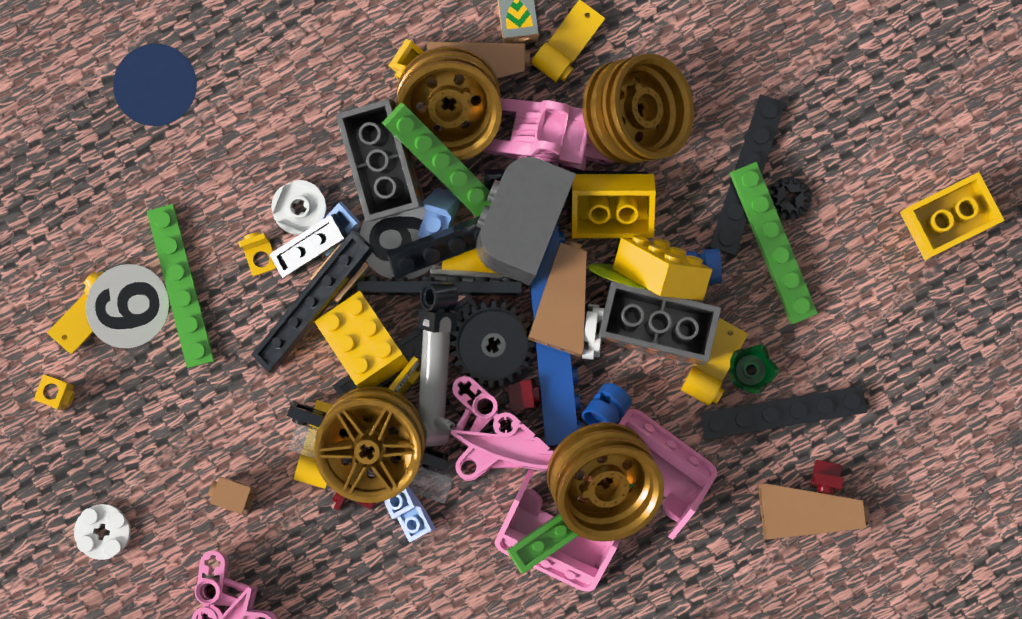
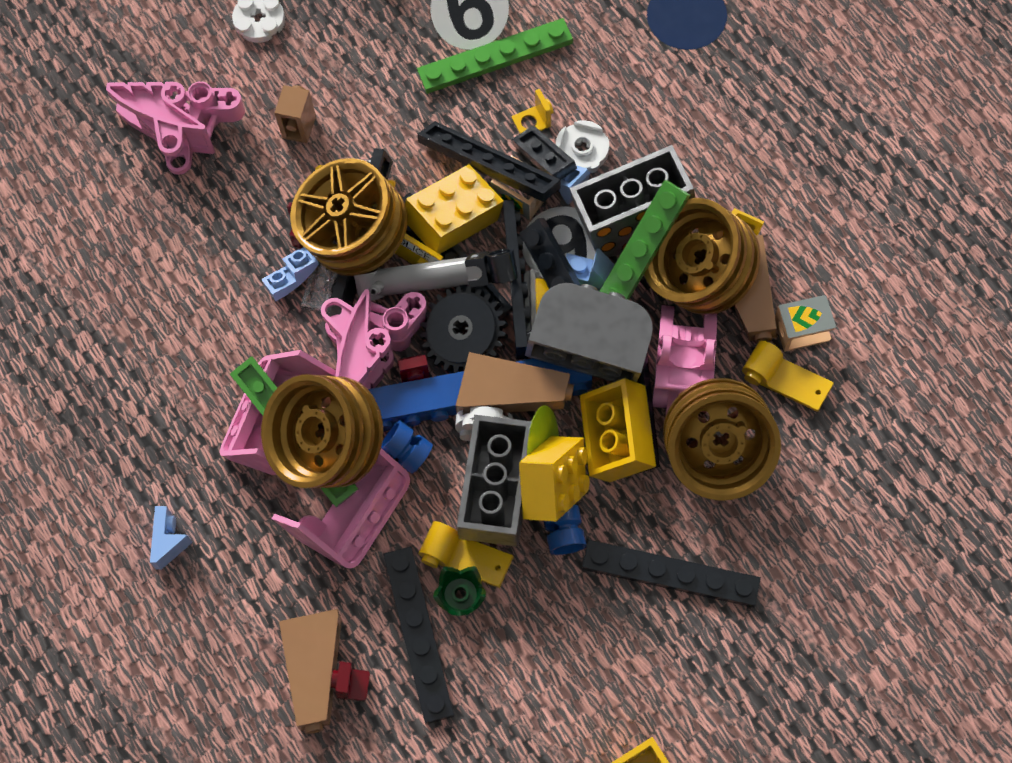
camera: 90 degrees right, 15 degrees down
(773, 243) = (599, 603): bright green plate -> none
(802, 201) = (648, 633): black gear -> none

